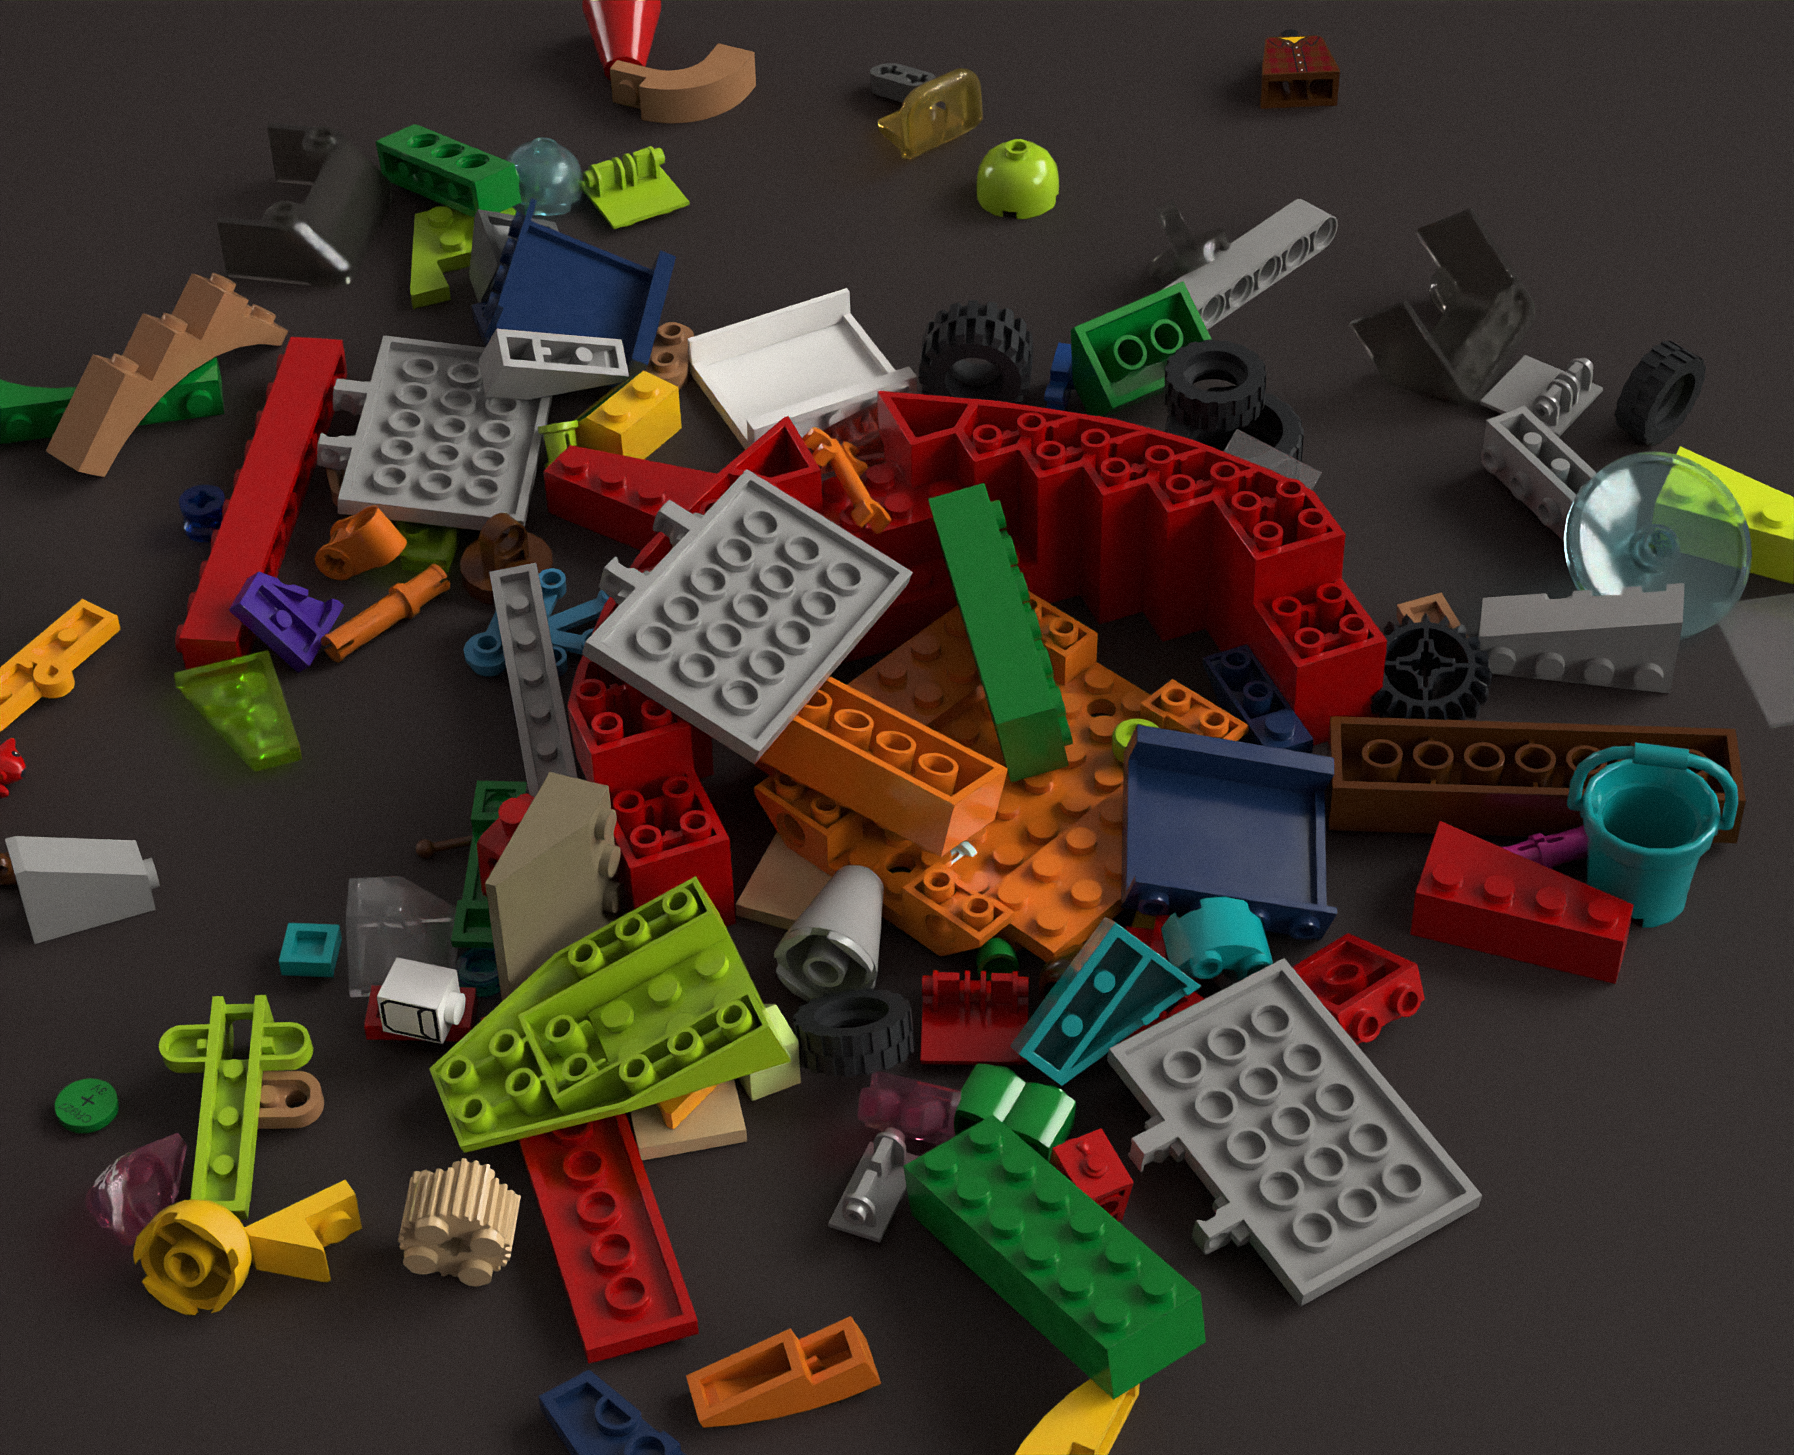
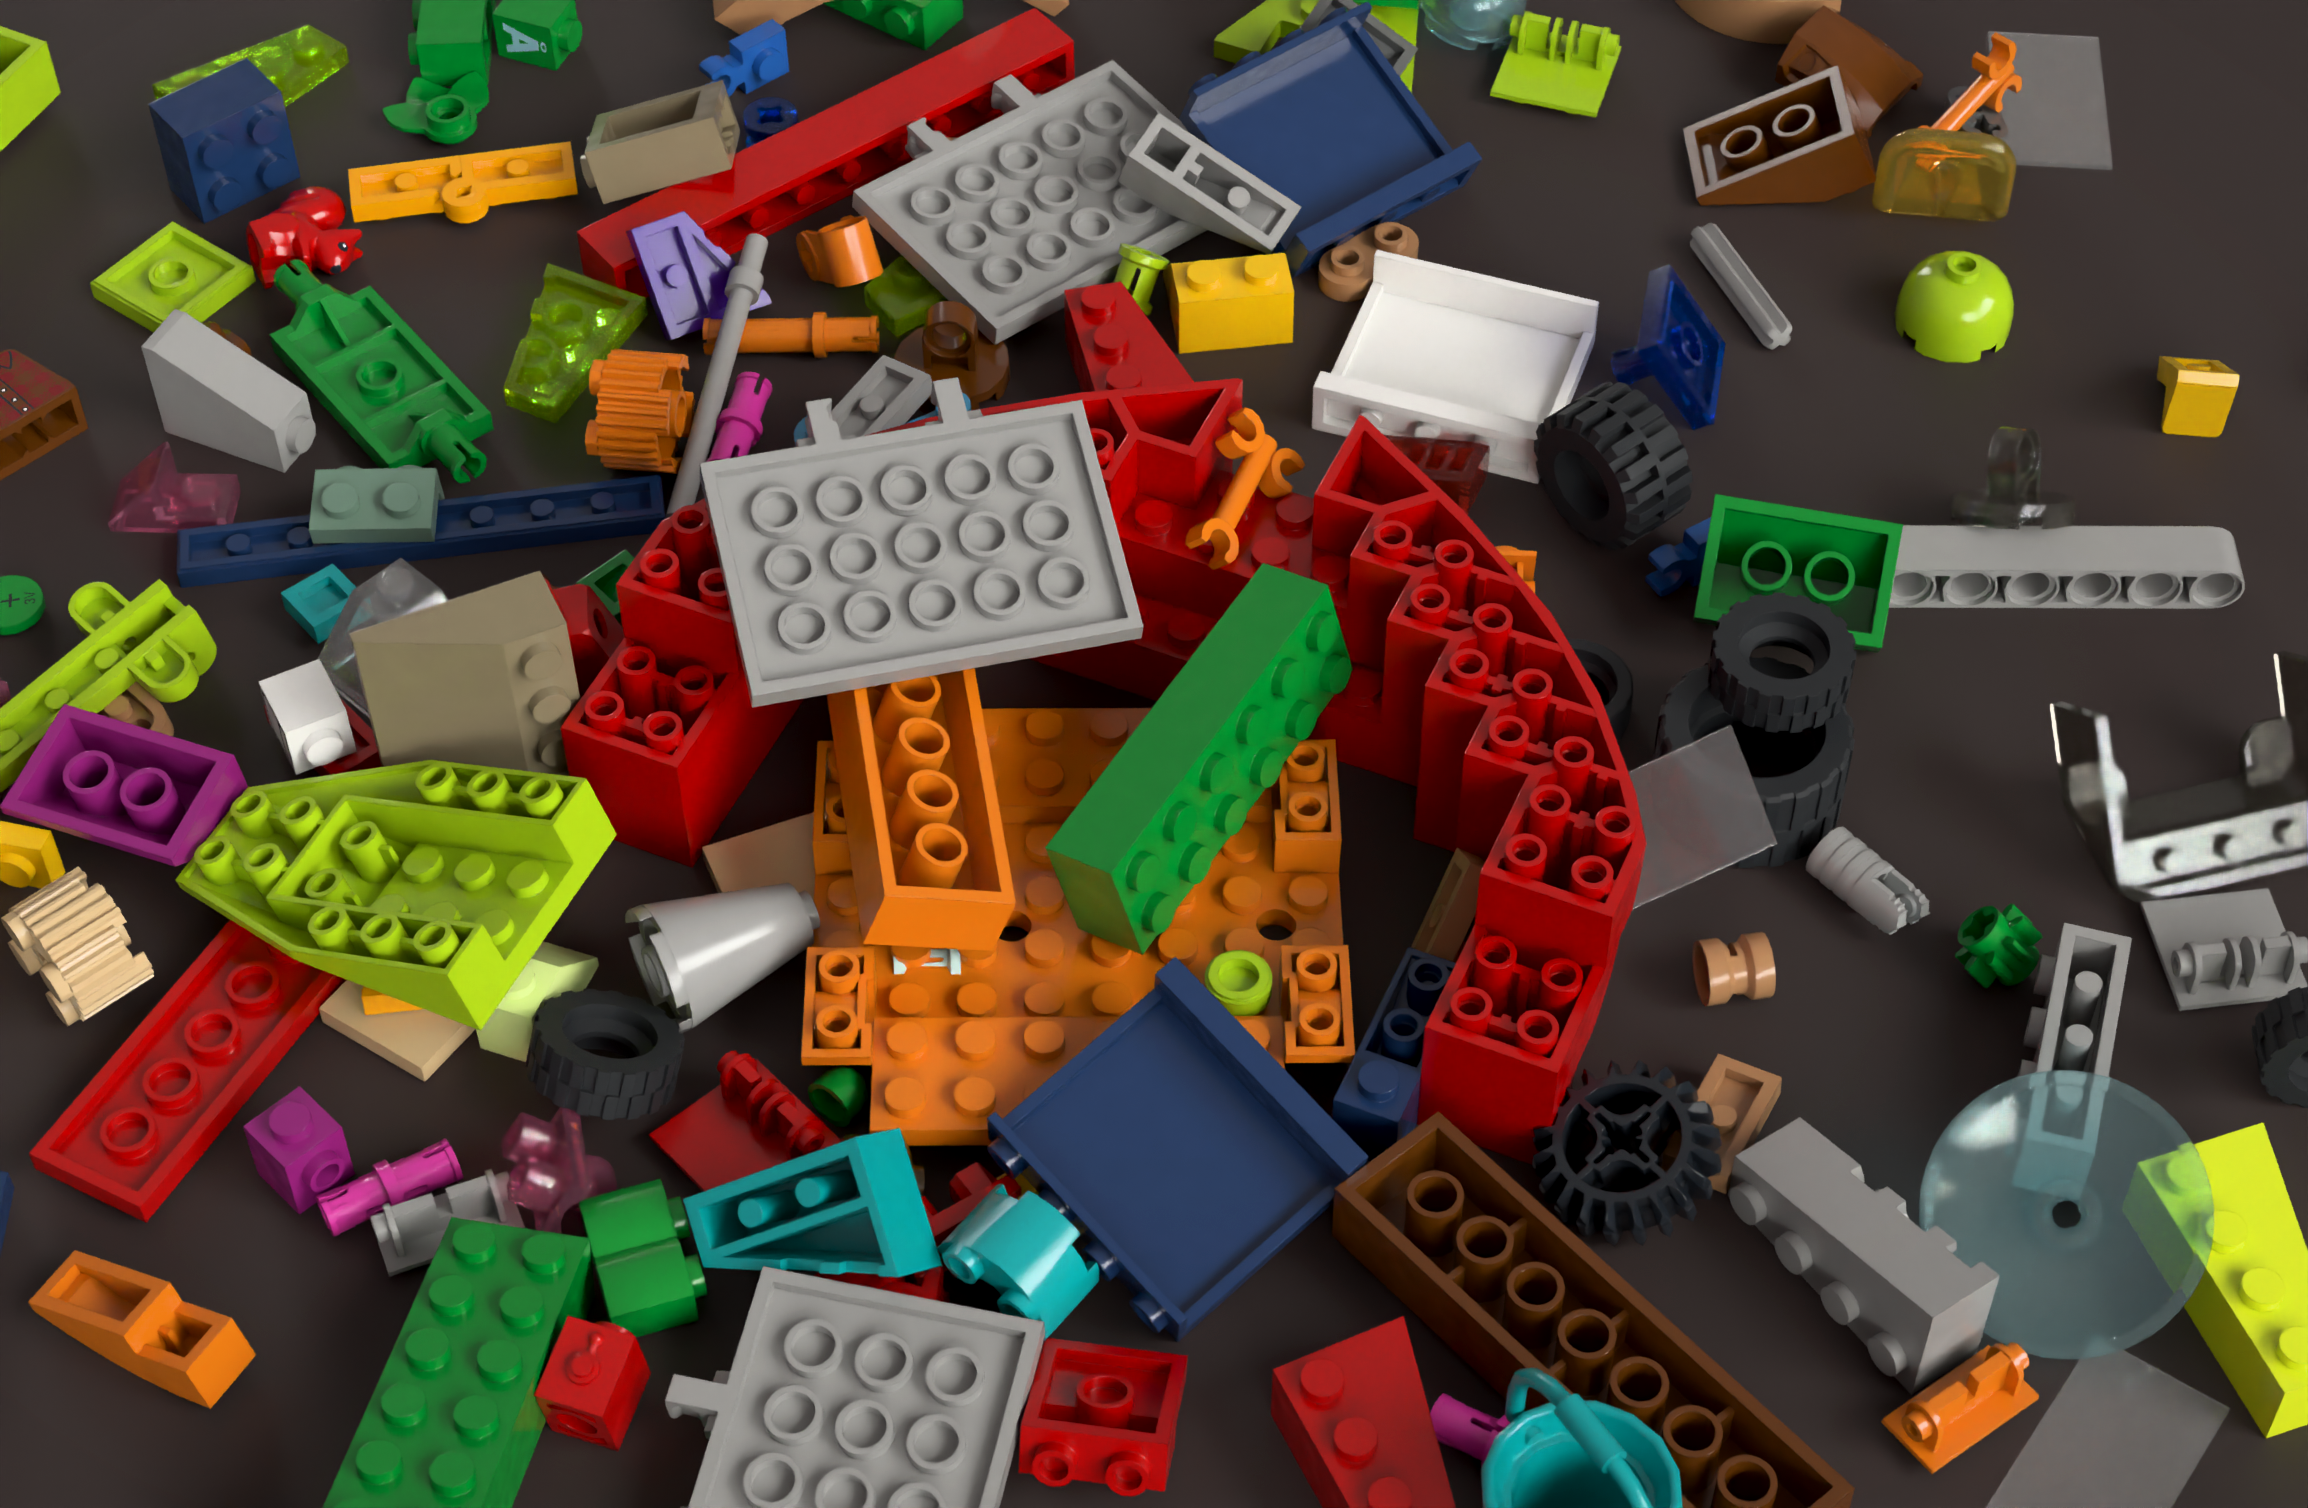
camera: 45 degrees right, 5 degrees up
(106, 973) = (166, 501): none -> clear pink slope
(134, 480) = (753, 59): none -> blue plate
(159, 808) = (378, 377): none -> green plate
(162, 553) = (661, 142): none -> dark tan window
(268, 873) = (375, 505): none -> sand green bracket
(299, 878) = (462, 528): none -> dark blue tile
(338, 601) = (742, 291): none -> light grey bar
(358, 1119) = (125, 786): none -> magenta slope
(373, 704) = (639, 410): none -> orange brick
(429, 681) = (740, 424): none -> dark pink pin
(748, 1218) = (299, 1149): none -> magenta brick
(801, 99) = (1869, 66): none -> reddish brown slope
(816, 1200) = (389, 1183): none -> dark pink pin
(822, 152) = (1783, 146): none -> reddish brown slope
(890, 241) = (1741, 286): none -> light grey axle
(902, 60) = (1987, 89): none -> orange bar
(909, 41) = (2061, 104): none -> clear piece
(915, 287) = (1675, 347): none -> clear blue tile
(1196, 143) = (2196, 395): none -> yellow slope
(1197, 627) = (1451, 908): none -> medium nougat plate
(1353, 480) = (1866, 881): none -> light grey hinge
(1360, 558) = (1734, 968): none -> medium nougat wheel
(1453, 462) = (1998, 945): none -> green gear
(1703, 673) = (1963, 1405): none -> orange hinge

